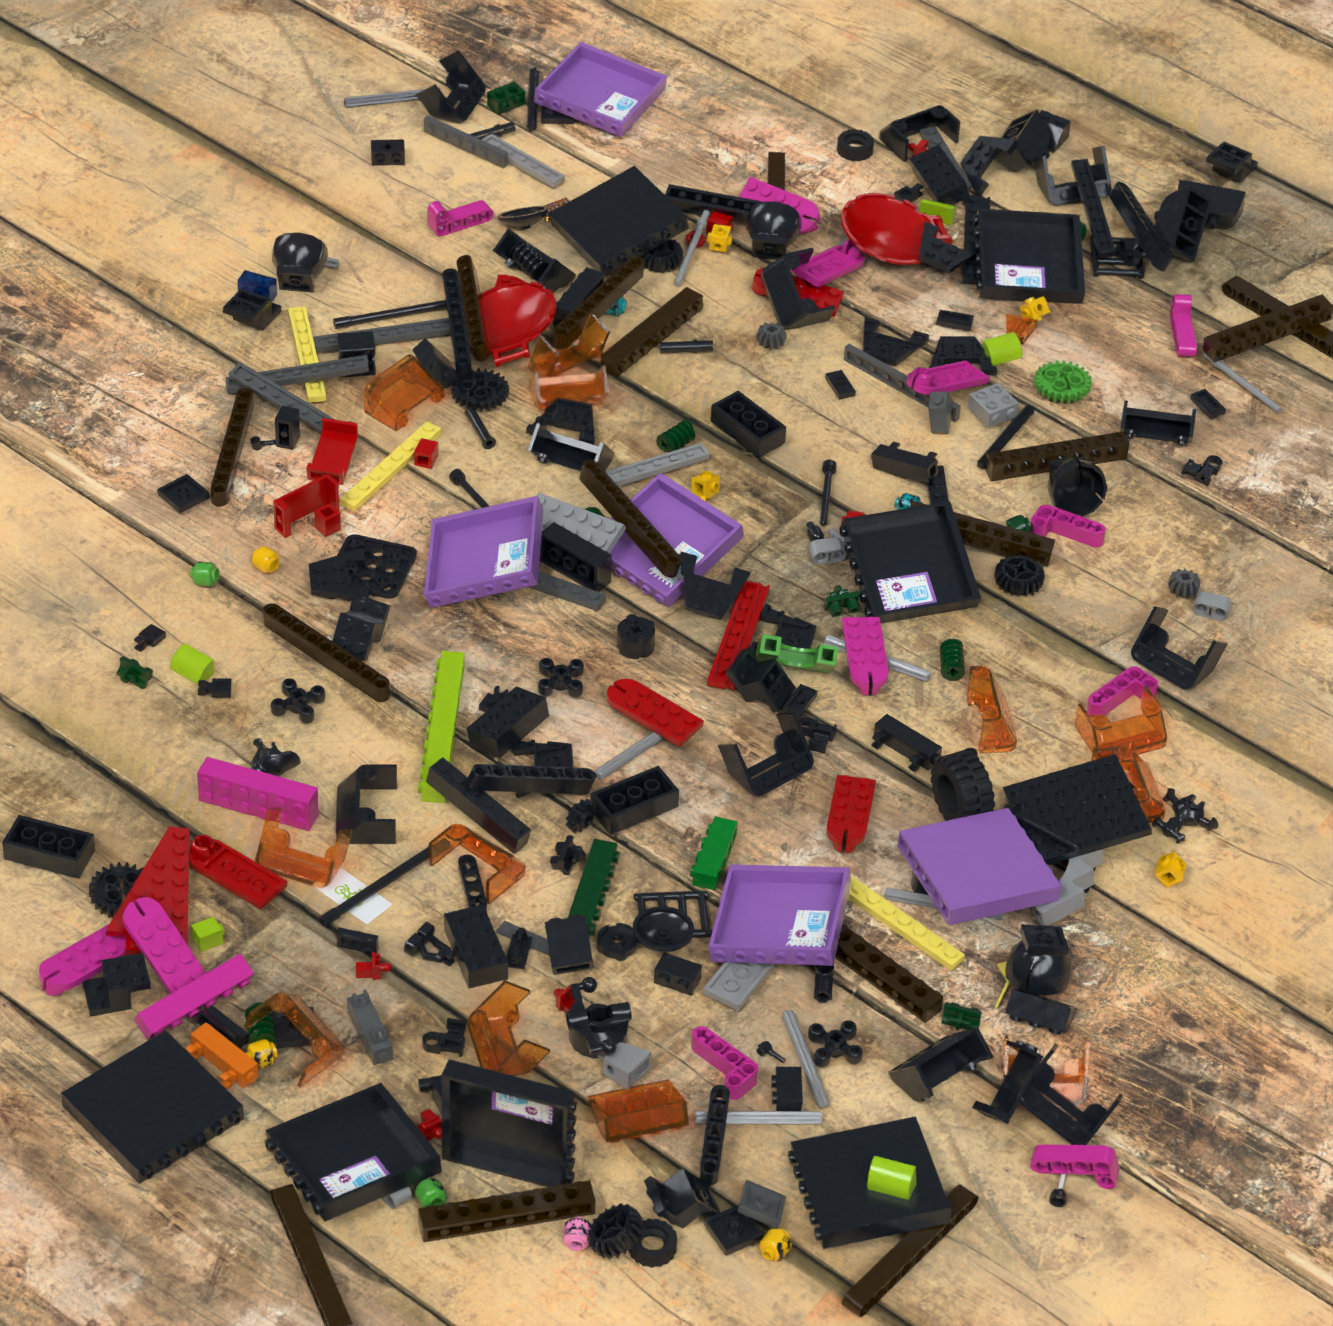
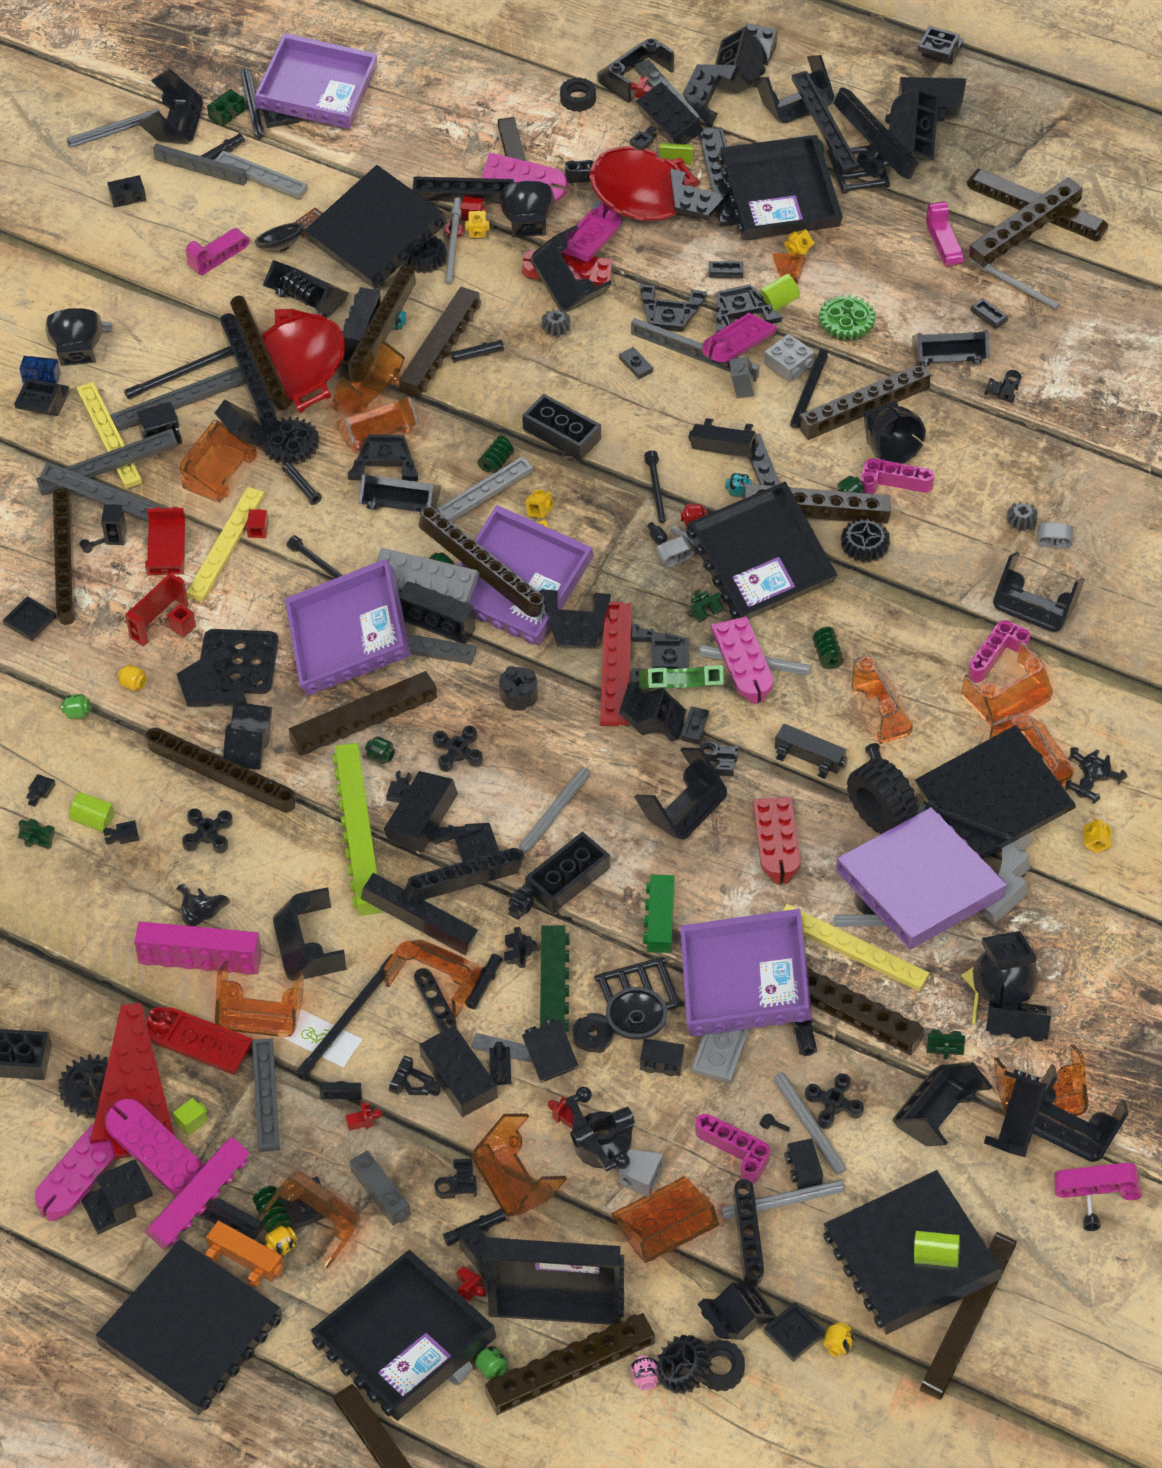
camera: 10 degrees left, 10 degrees up
(285, 931) = (265, 1095): none -> dark grey plate
(478, 630) = (362, 713): none -> dark brown brick
(485, 665) = (380, 750): none -> dark green head
(530, 872) = (487, 975): none -> black pin
(653, 711) = (558, 768): red plate -> none
(761, 1204) = (814, 1298): dark grey plate -> none
(832, 210) = (578, 171): none -> black piece

